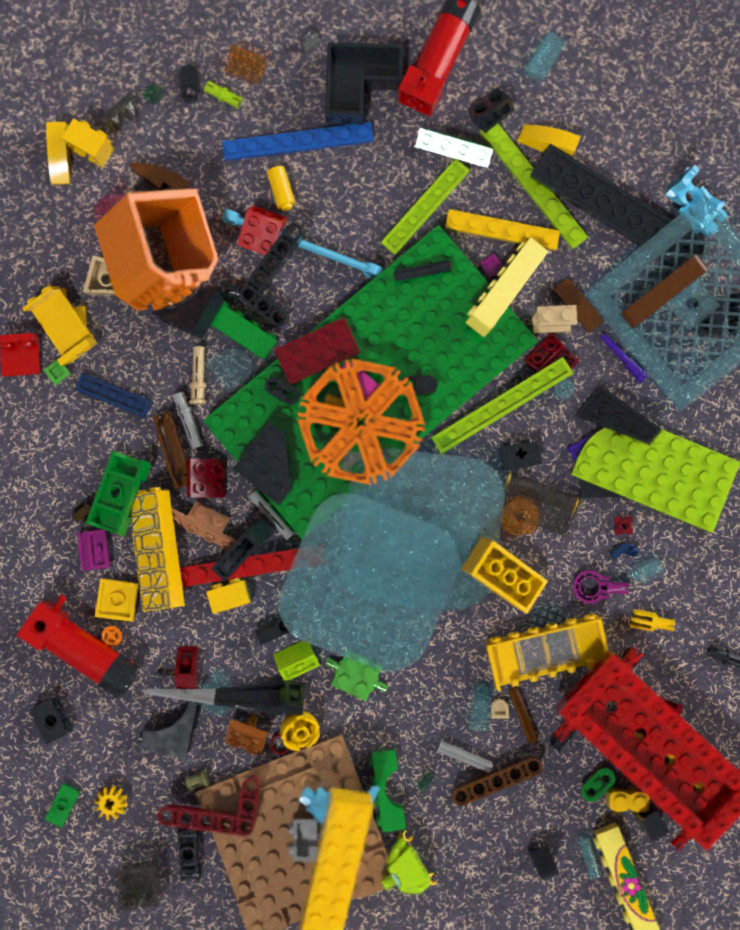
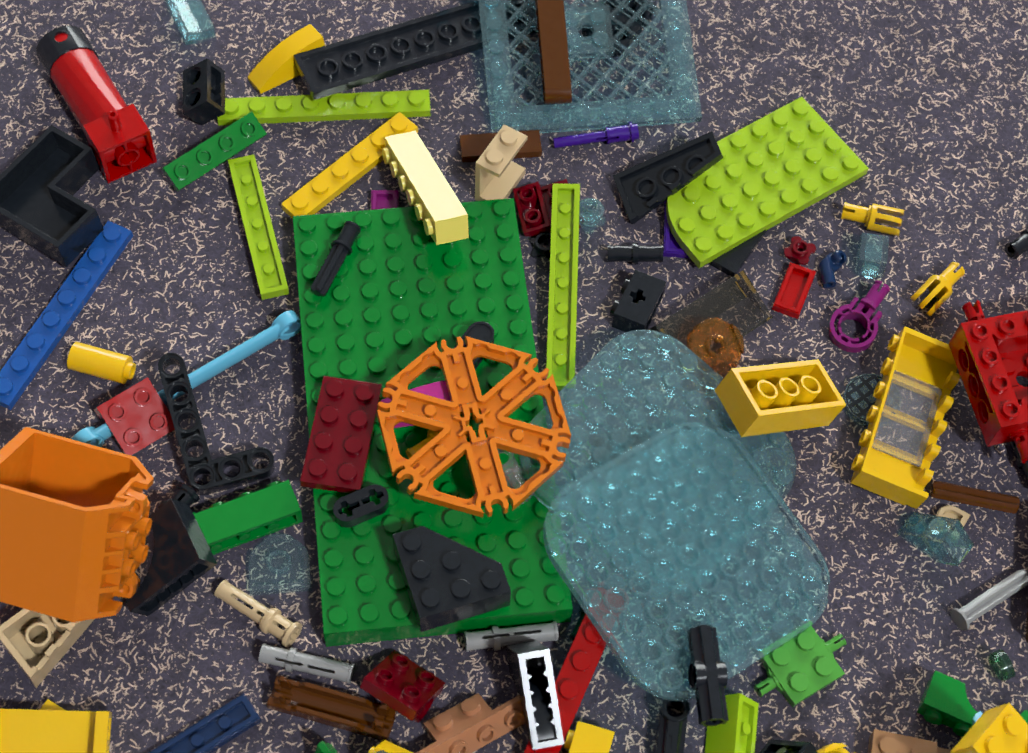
camera: 60 degrees left, 25 degrees down
(304, 634) = (707, 675): none -> black piece
(555, 432) = (635, 253): none -> black pin
(594, 537) = (793, 290): none -> red tile
(677, 554) = (870, 215): none -> yellow arm

